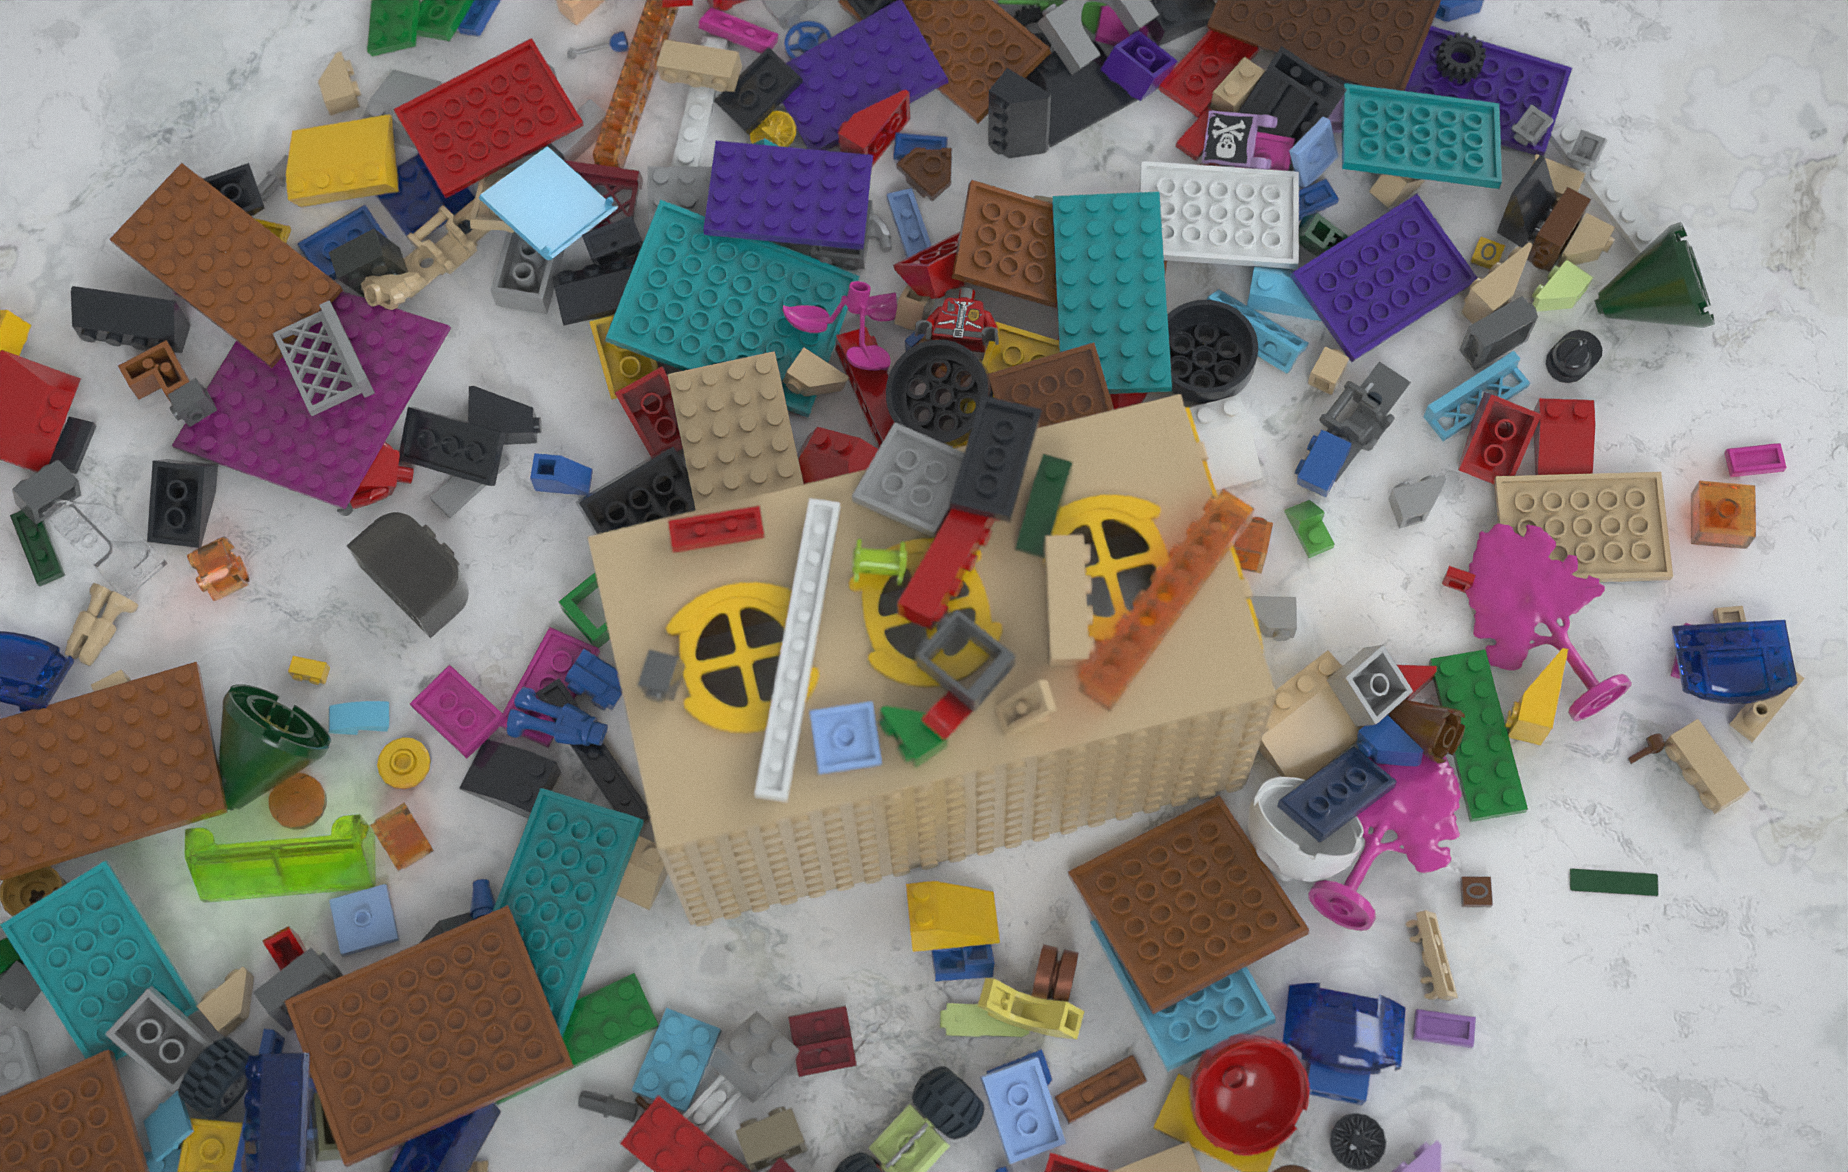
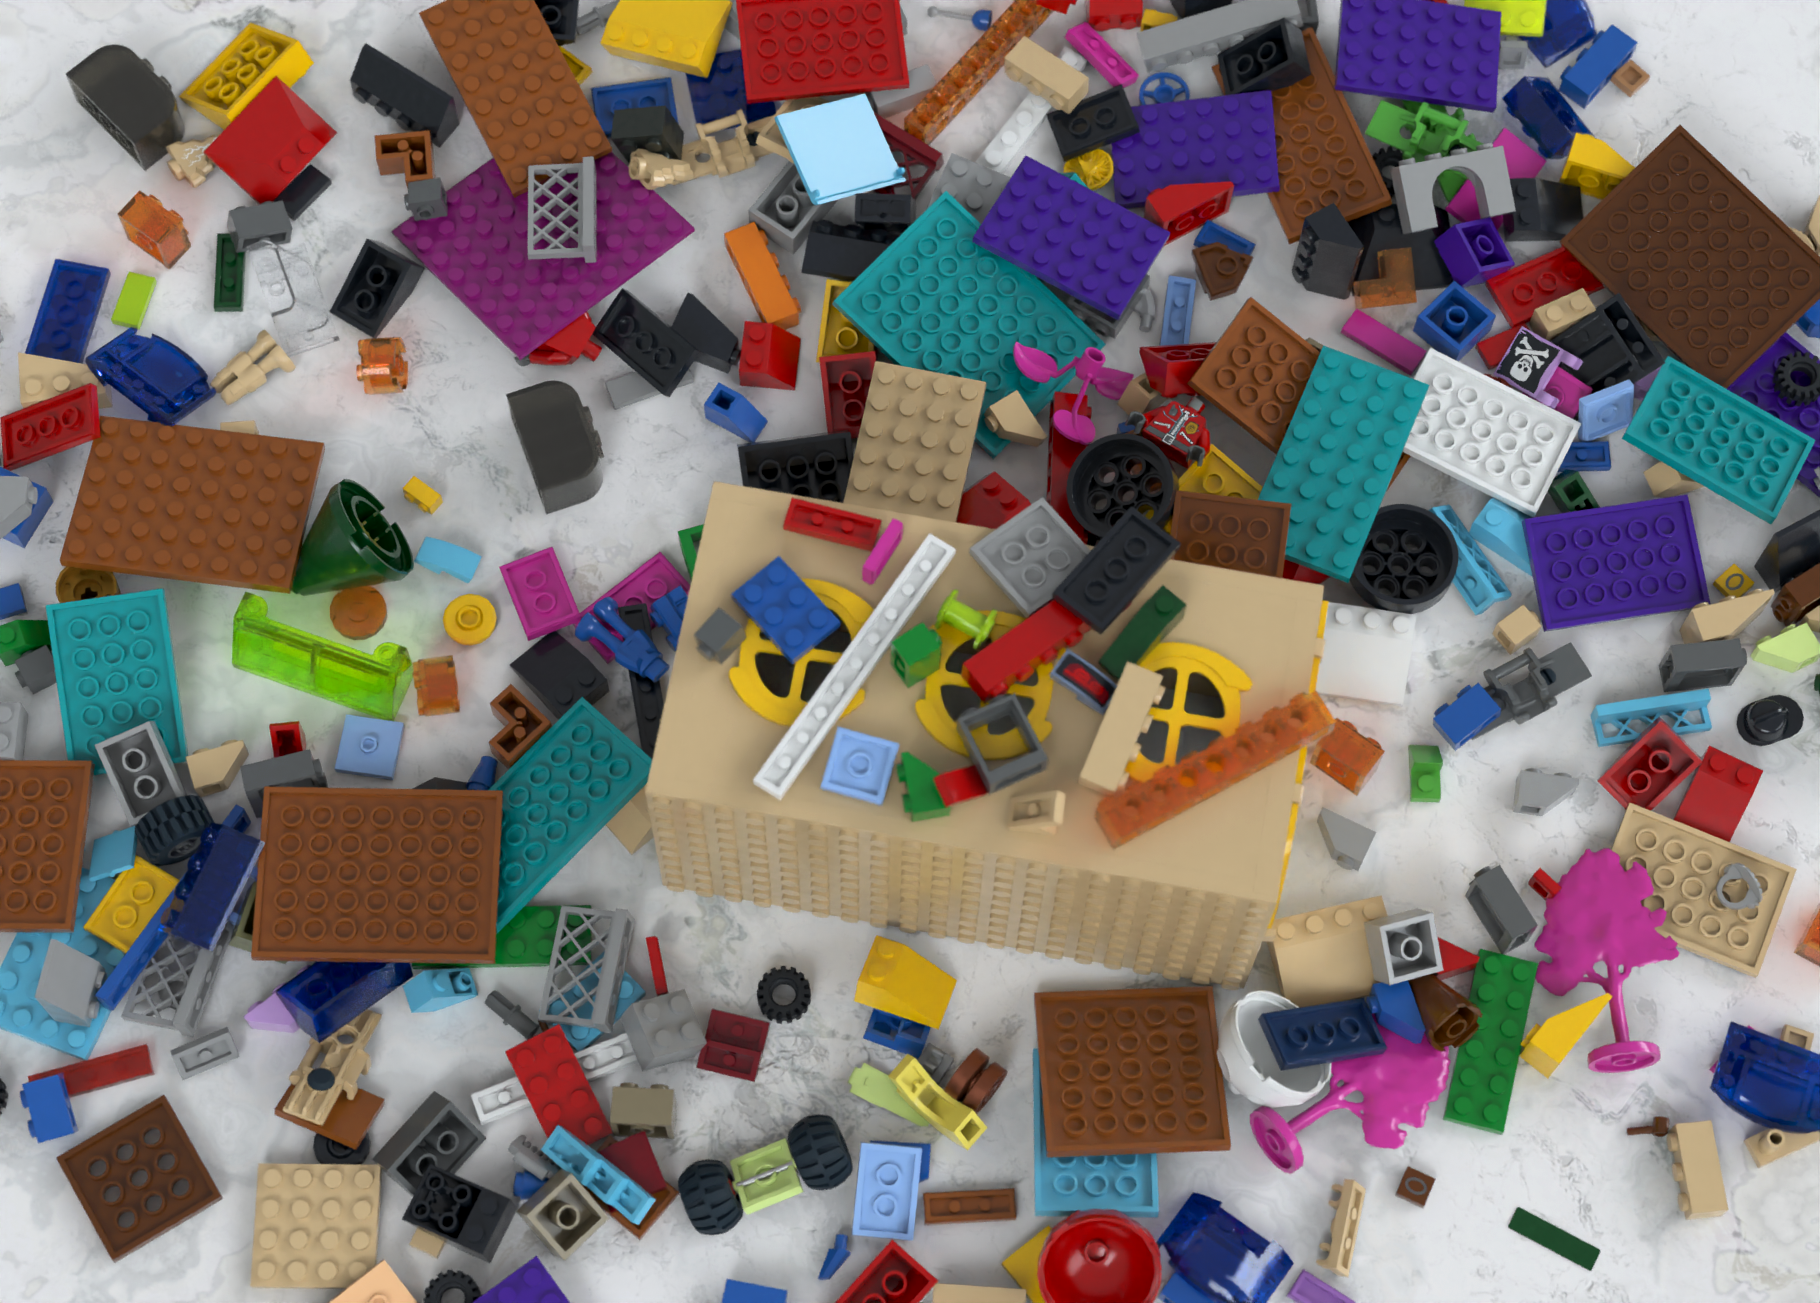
camera: 20 degrees right, 0 degrees up
(497, 836) = (522, 724): none -> dark orange brick
(529, 346) = (761, 277): none -> orange brick
(531, 1113) = (439, 989): none -> medium azure slope
(567, 412) = (768, 357): none -> red slope
(683, 1027) = (611, 965): none -> light grey fence
(710, 625) = (785, 610): none -> blue plate
(721, 1001) = (657, 965): none -> red tile
(774, 533) = (882, 552): none -> dark pink tile
(846, 992) = (783, 1012): none -> black tyre
(850, 613) = (916, 654): none -> green brick
(1009, 973) = (935, 1062): none -> light grey tile
(1012, 570) = (1085, 680): none -> slope
(1083, 119) = (1395, 282): none -> clear orange brick
(1096, 174) = (1383, 342): none -> dark pink tile
(1149, 131) = (1454, 322): none -> blue brick
(1433, 616) = (1500, 909): none -> dark grey window
(1615, 495) = (1753, 895): none -> light grey piece

